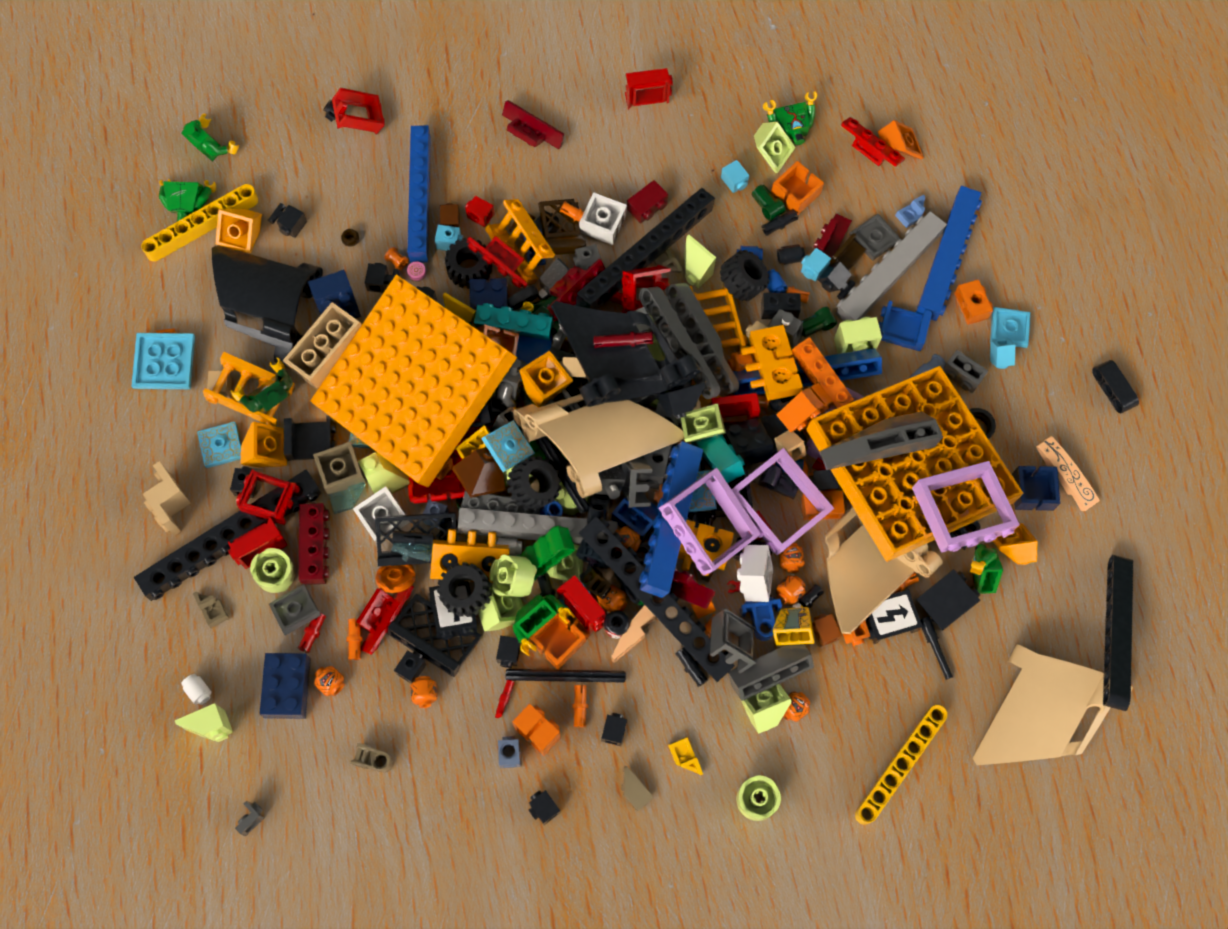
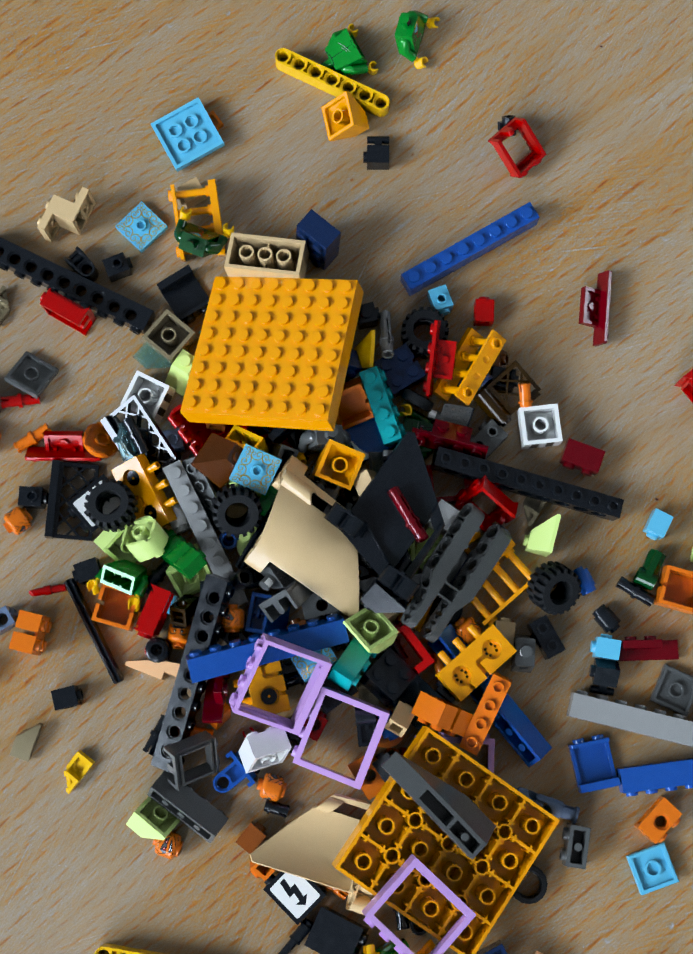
camera: 65 degrees right, 10 degrees up
(218, 511) = (80, 263): none -> black piece
(263, 446) = (156, 262): light orange slope -> none
(264, 292) = (294, 176): black panel -> none
(267, 561) = (43, 335): yellowish green brick -> none
(284, 503) = (111, 311): red window -> none
(313, 543) = (94, 356): dark red brick -> none
(347, 234) = (395, 211): dark brown plate -> none
(378, 277) = (366, 263): black brick -> none
(396, 258) = (394, 267): orange bush -> none
(416, 271) = (393, 291): bright pink tile -> none
(450, 215) = (461, 289): reddish brown brick -> none
(457, 291) = (386, 339): none -> light grey pin
(580, 705) = (73, 657): orange pin -> none
(769, 793) = (68, 864): yellowish green brick -> none
(776, 282) = (566, 622): blue brick -> none
(792, 558) = (301, 775): orange head -> none
(793, 626) = (237, 807): yellow torso -> none
(804, 295) = (568, 643): orange pin -> none
(821, 320) = (553, 682): dark green piece -> none
(849, 253) = (638, 674): dark brown panel -> none
(857, 335) = (552, 725): yellowish green brick -> none
(1002, 353) = (617, 873): medium azure brick -> none

